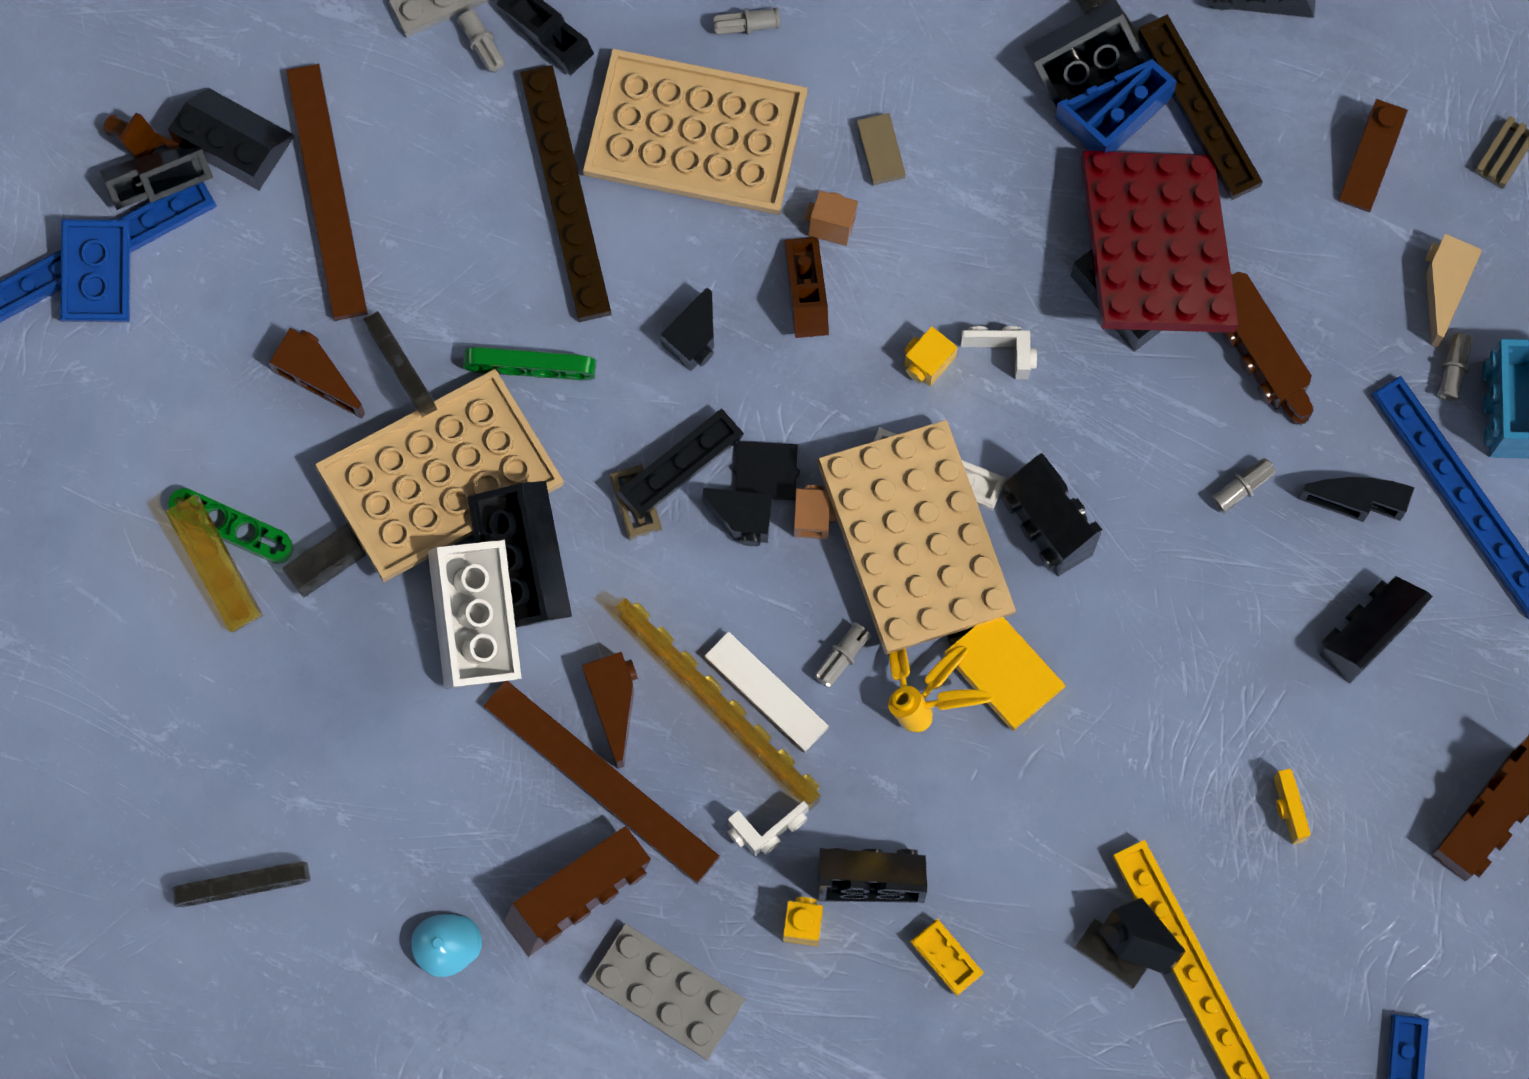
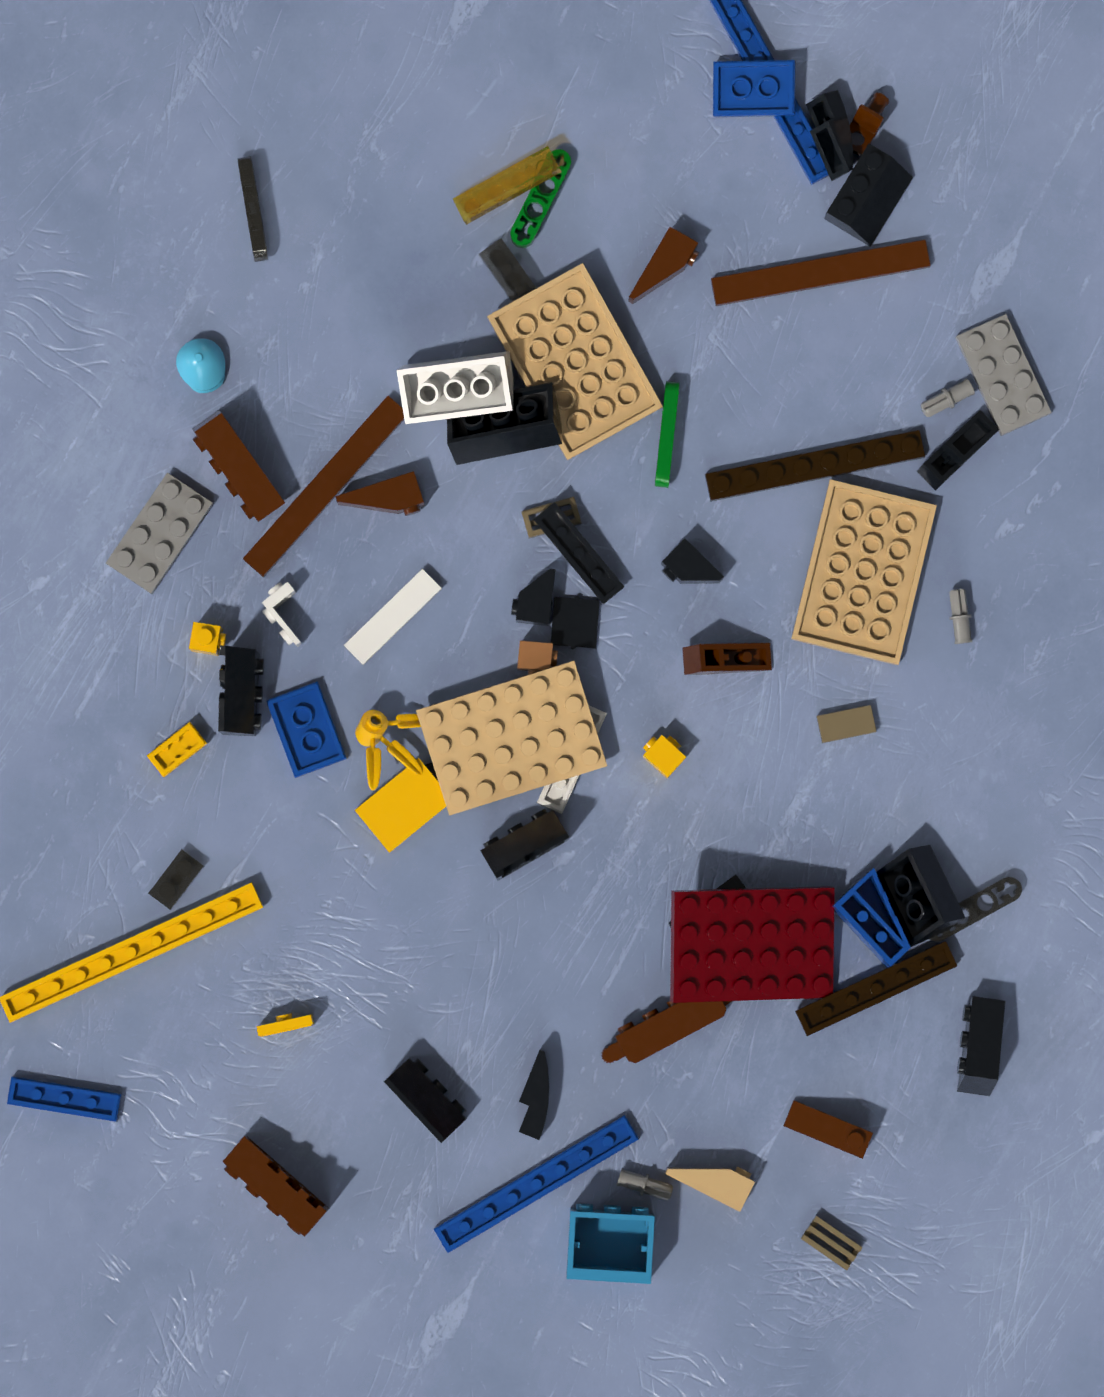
camera: 90 degrees right, 10 degrees up
(400, 364) = (666, 330): clear smoke beam -> none
(730, 713) = (375, 587): clear yellow plate -> none
(831, 217) = (785, 680): medium nougat brick -> none
(842, 655) = (419, 677): light grey axle -> none
(913, 795) = (306, 729): none -> blue tile
(1007, 337) = (662, 833): white bracket -> none
(1141, 937) = (184, 899): black slope -> none
(1243, 485) = (549, 1005): light grey axle -> none

